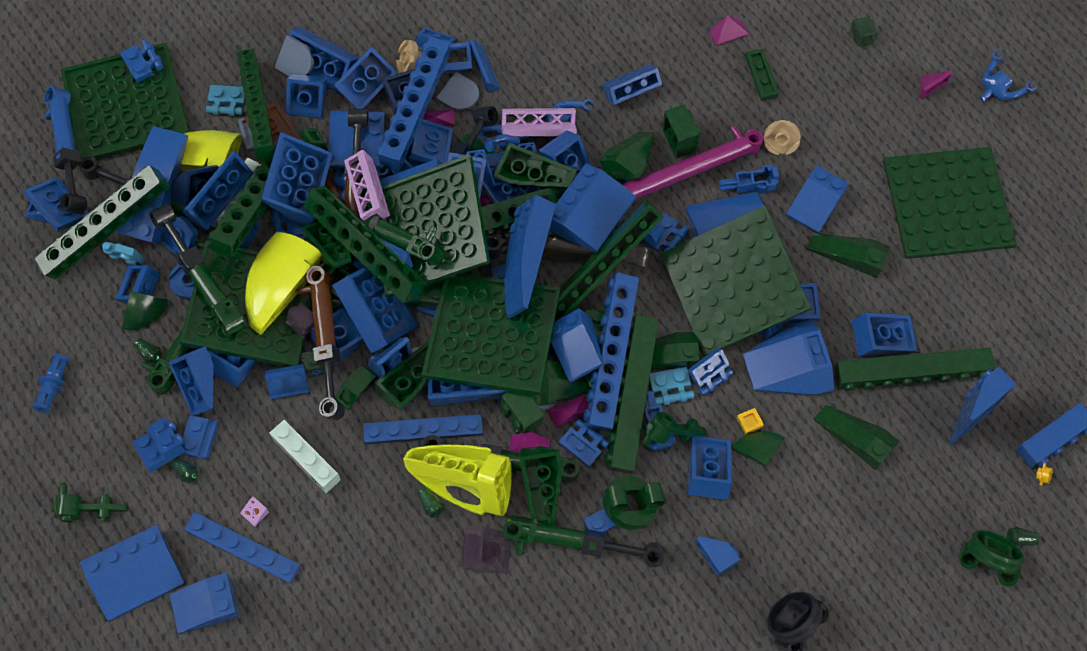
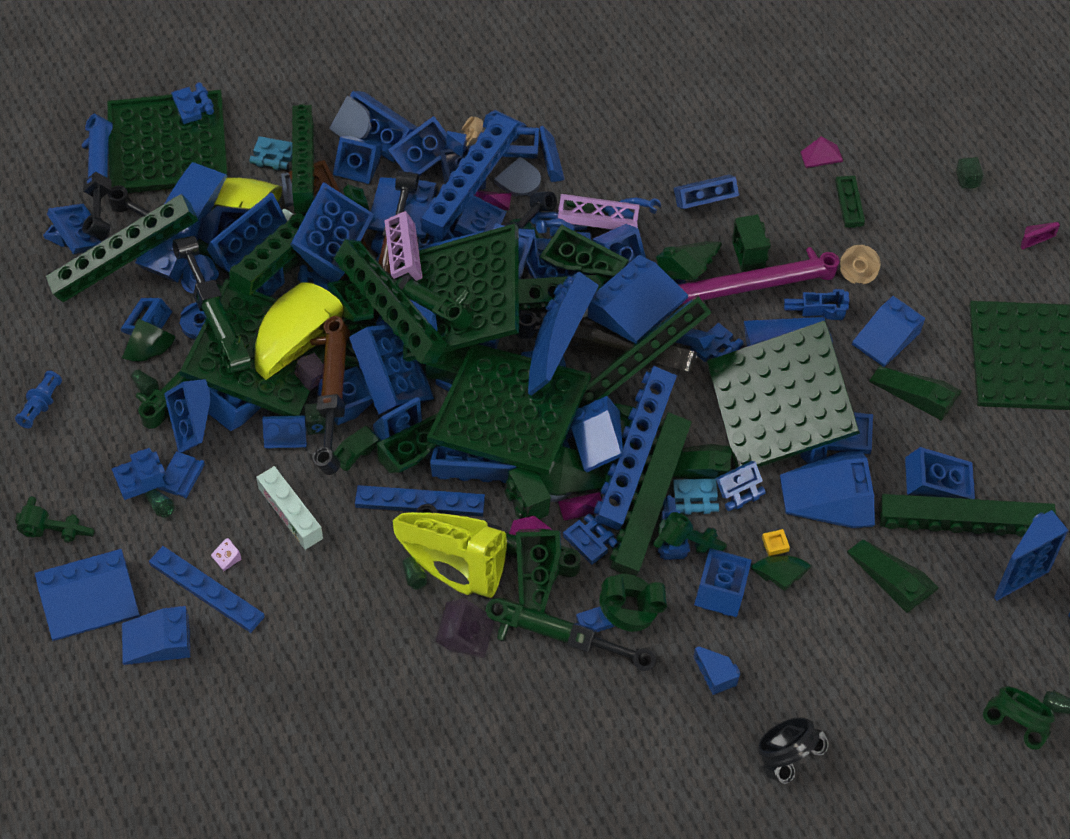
camera: 10 degrees right, 10 degrees down
(126, 253) = (138, 281): dark azure plate -> none
(397, 70) = (456, 142): none -> blue slope

